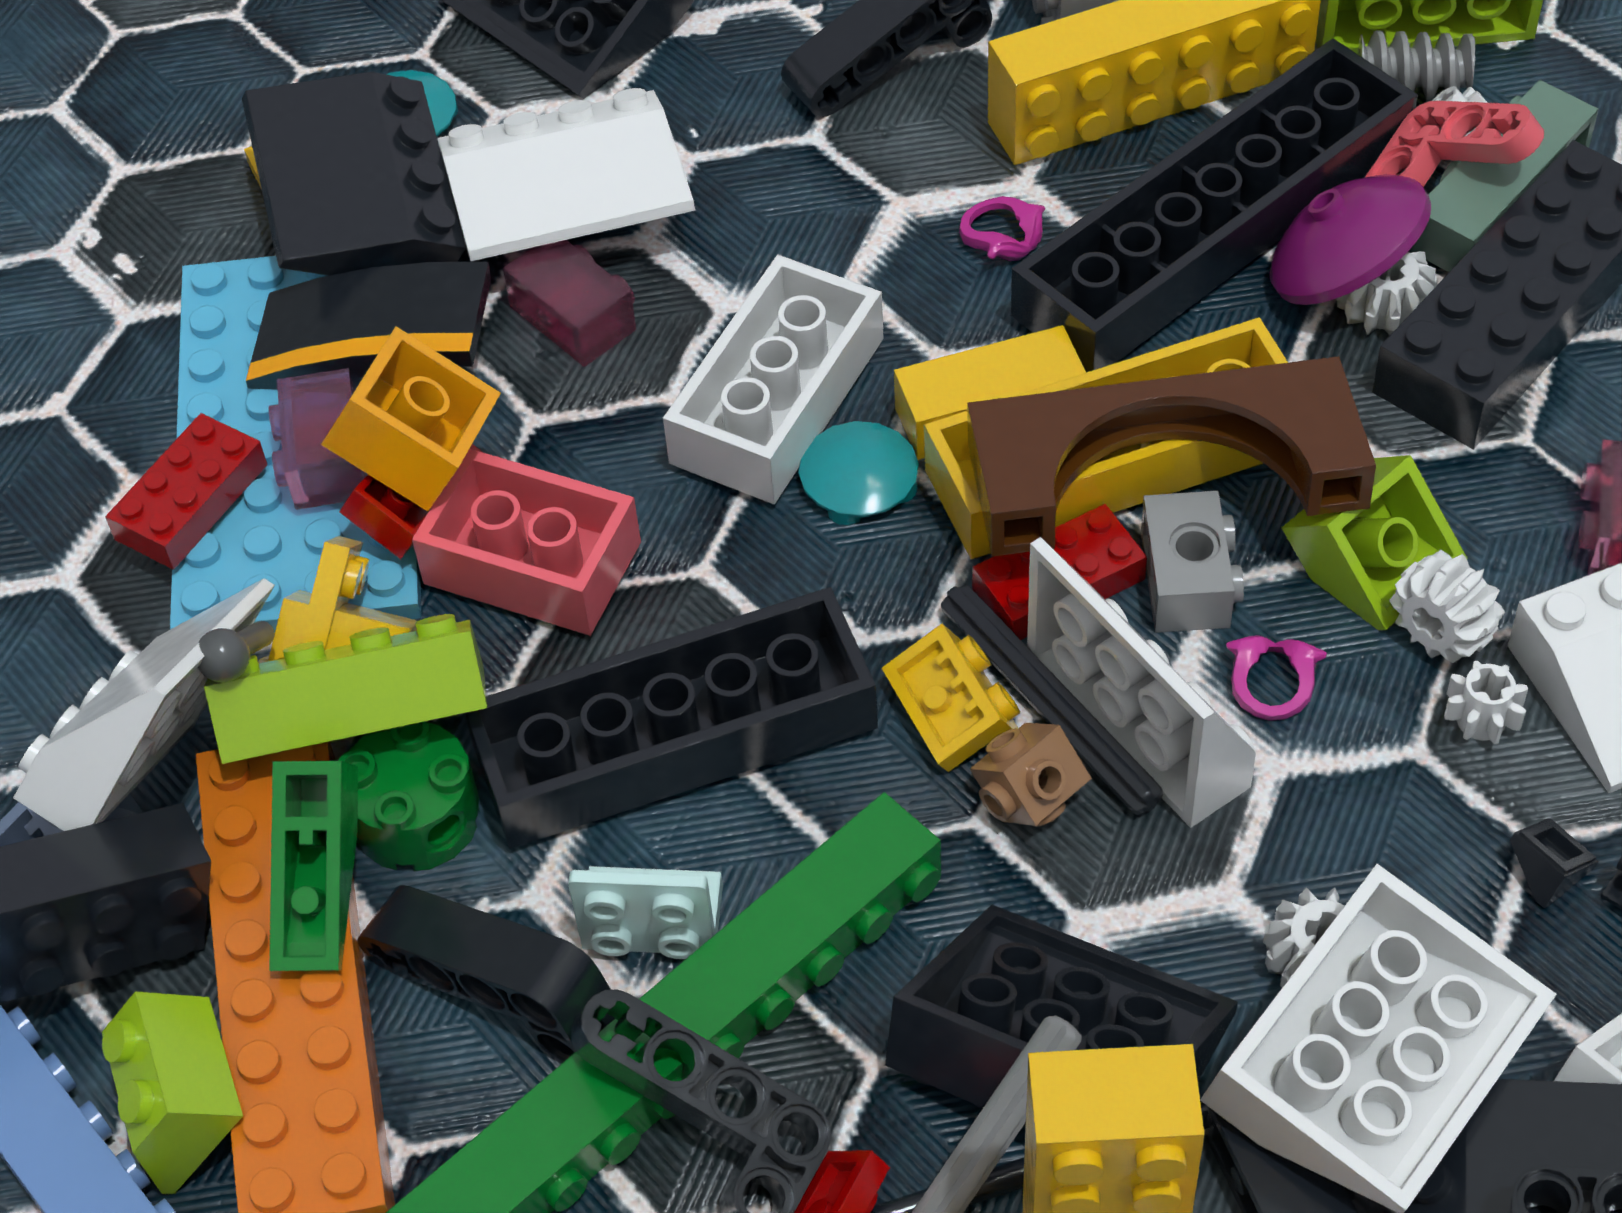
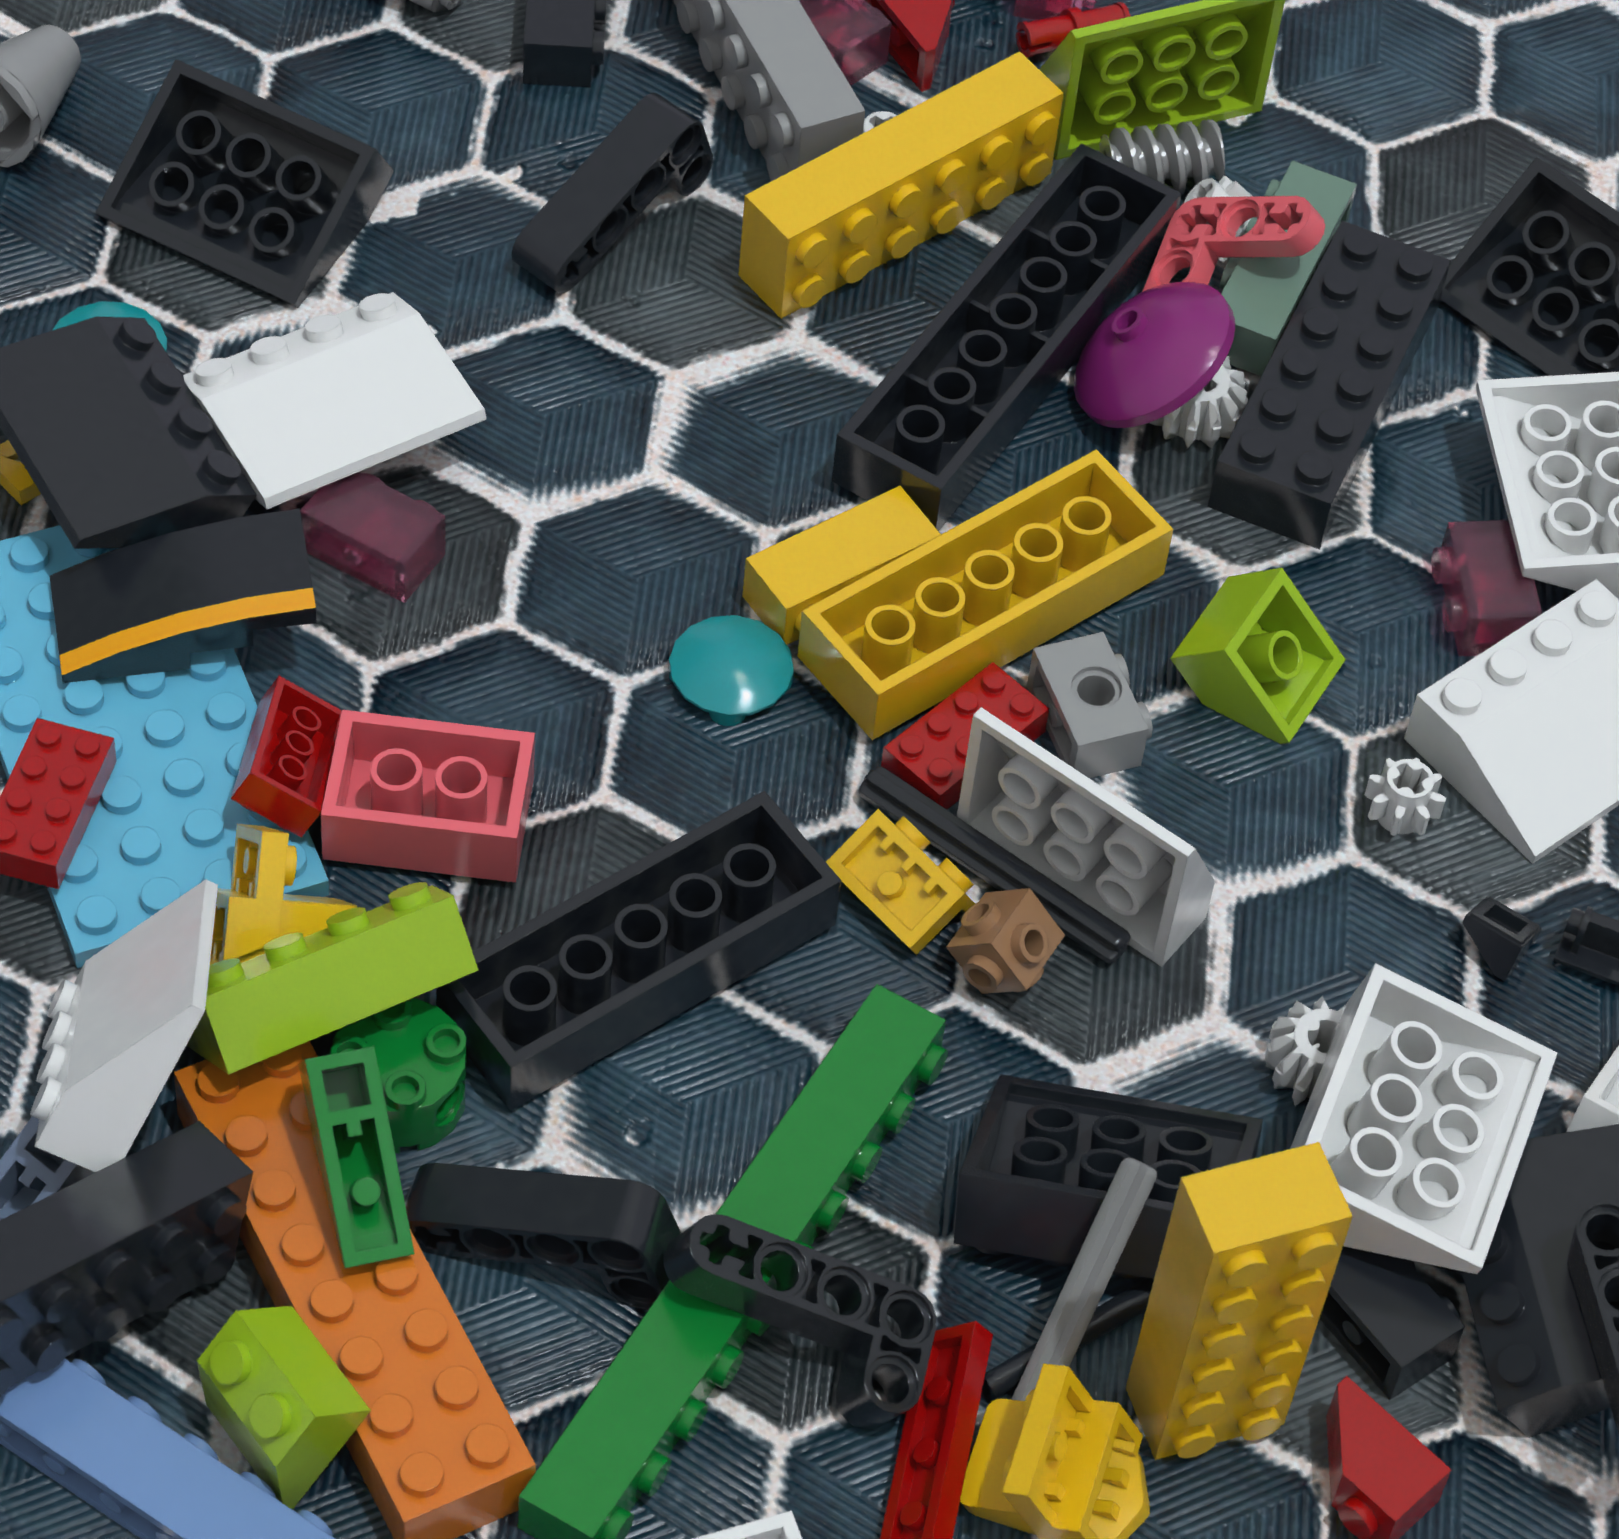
camera: 25 degrees left, 0 degrees up
(229, 651) = (224, 956): dark grey bar -> none
(301, 422) = (175, 724): clear pink brick -> none
(411, 419) = (290, 689): light orange brick -> none
(645, 909) = (680, 1140): light aqua bracket -> none
(774, 378) = (623, 585): white brick -> none
(997, 243) = (791, 406): dark pink piece -> none
(1283, 414) = (1157, 546): reddish brown arch -> none
(1302, 658) = (1222, 782): dark pink piece -> none
(1447, 606) = (1347, 710): white gear -> none

